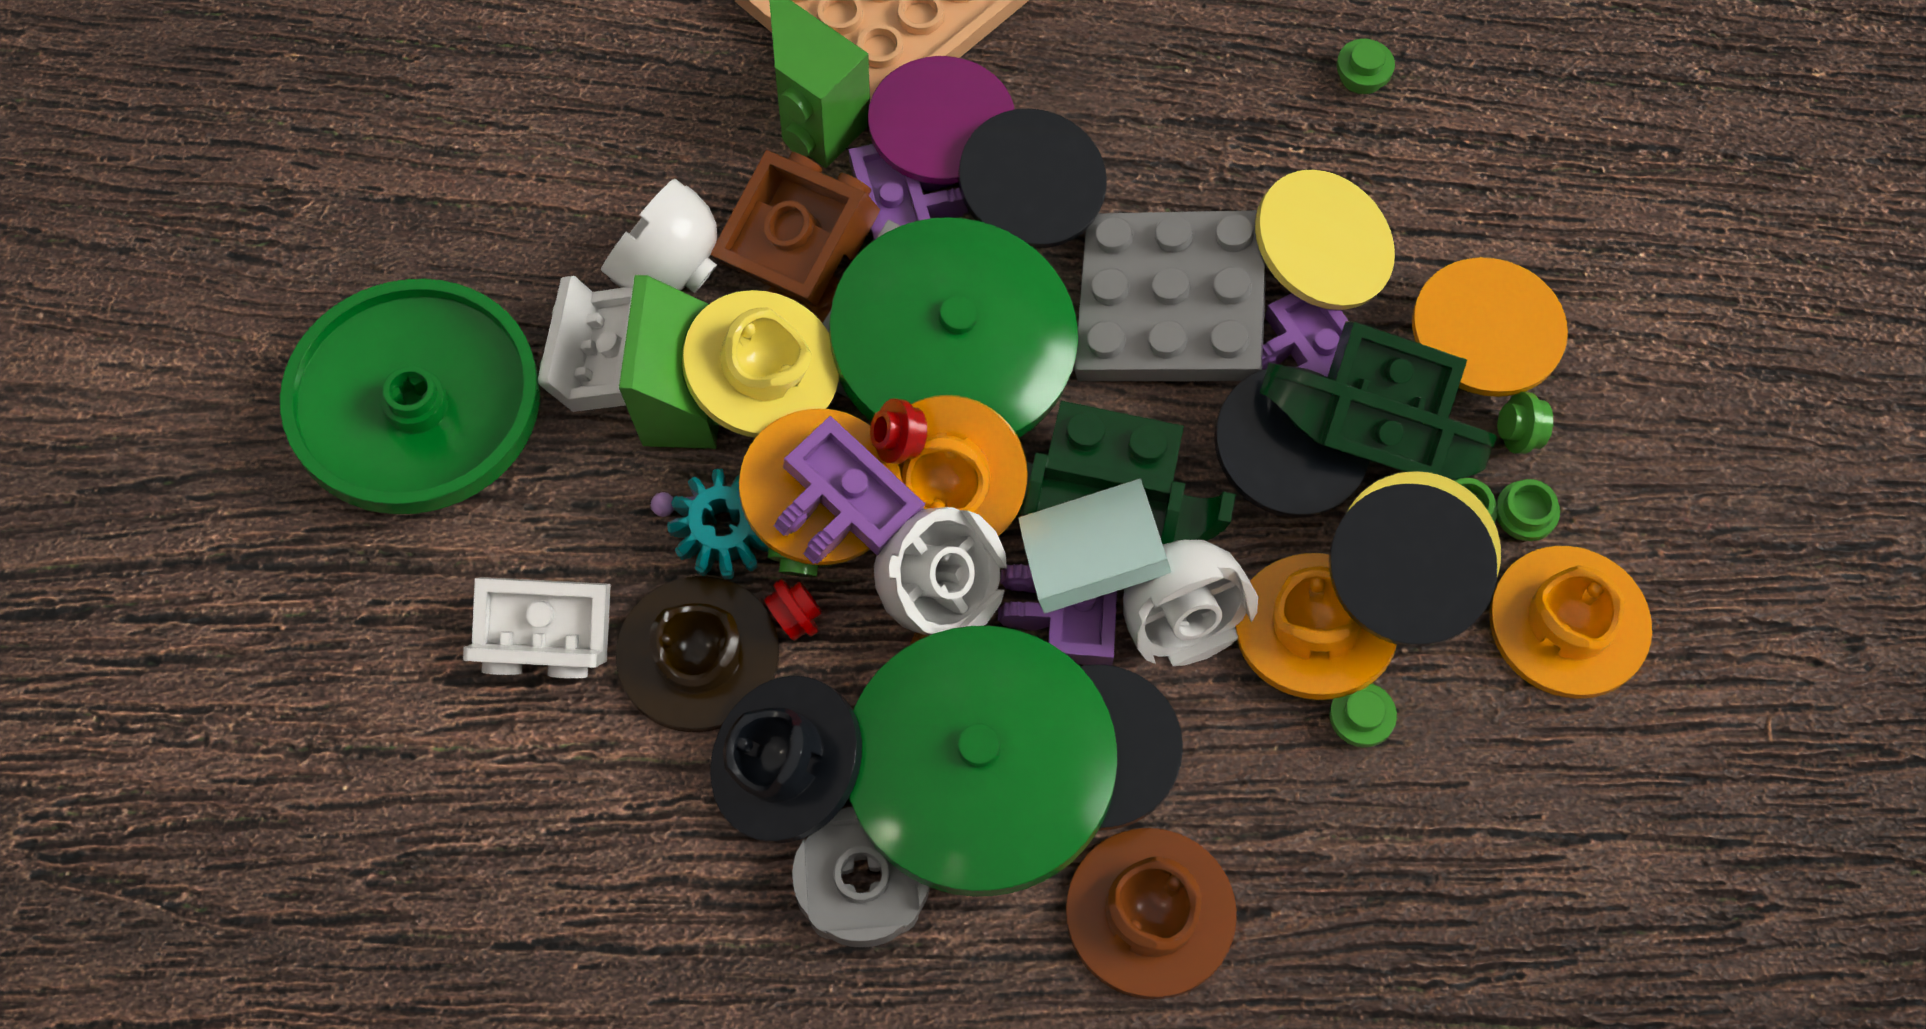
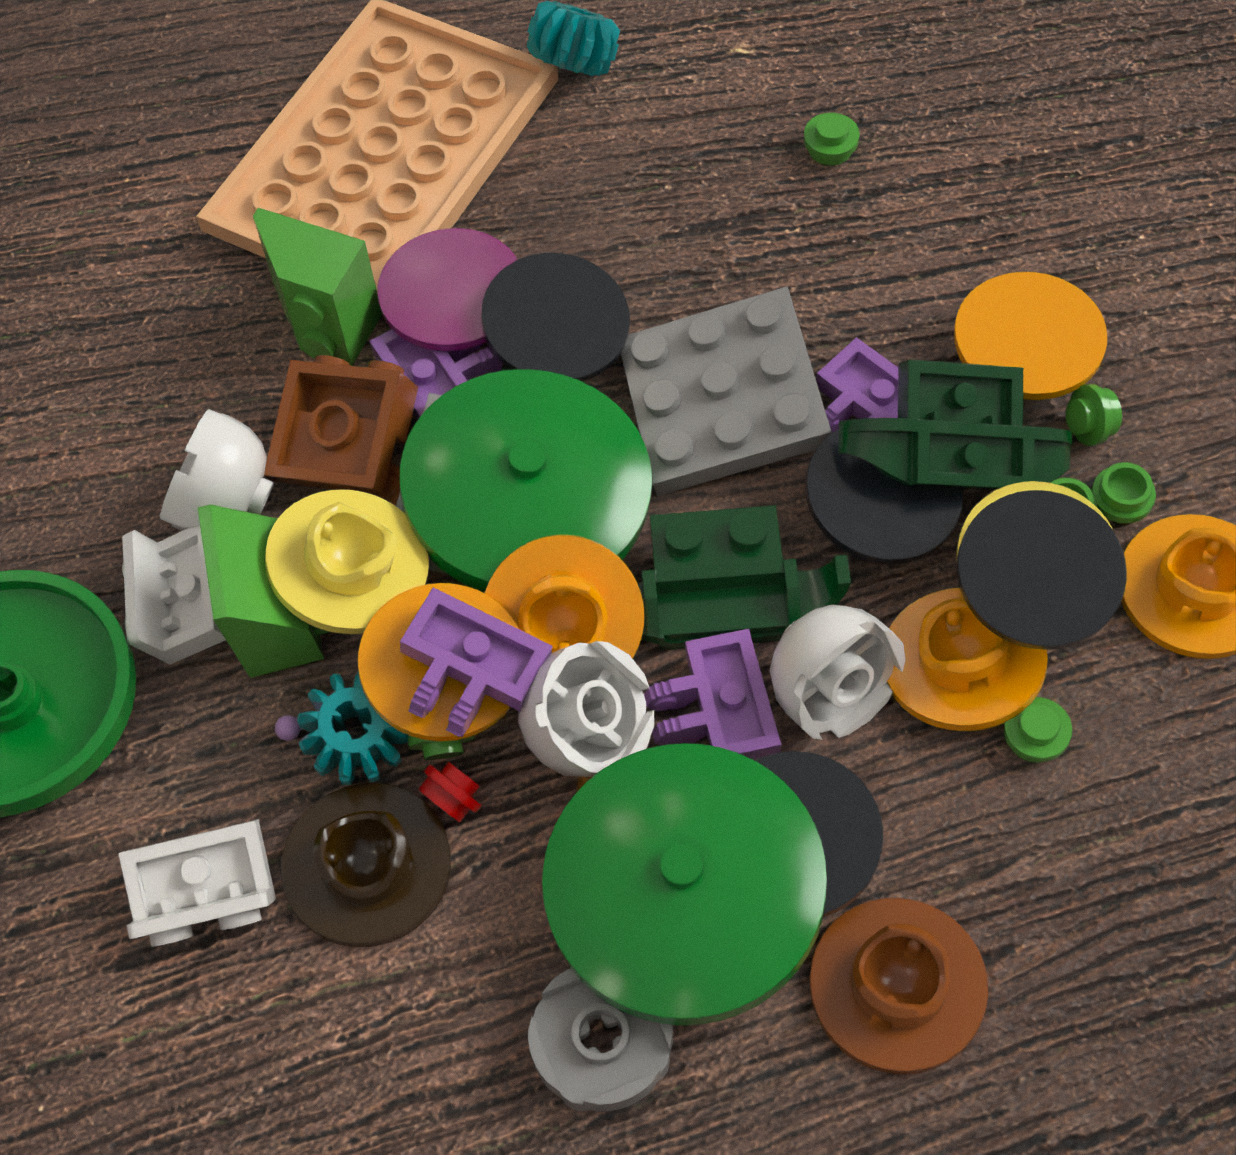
camera: 10 degrees left, 5 degrees down
(786, 759) = (489, 941): black piece -> none
(898, 431) = (504, 584): red plate -> none
(1093, 546) = (729, 641): light aqua slope -> none
(1324, 239) = (850, 299): light yellow piece -> none

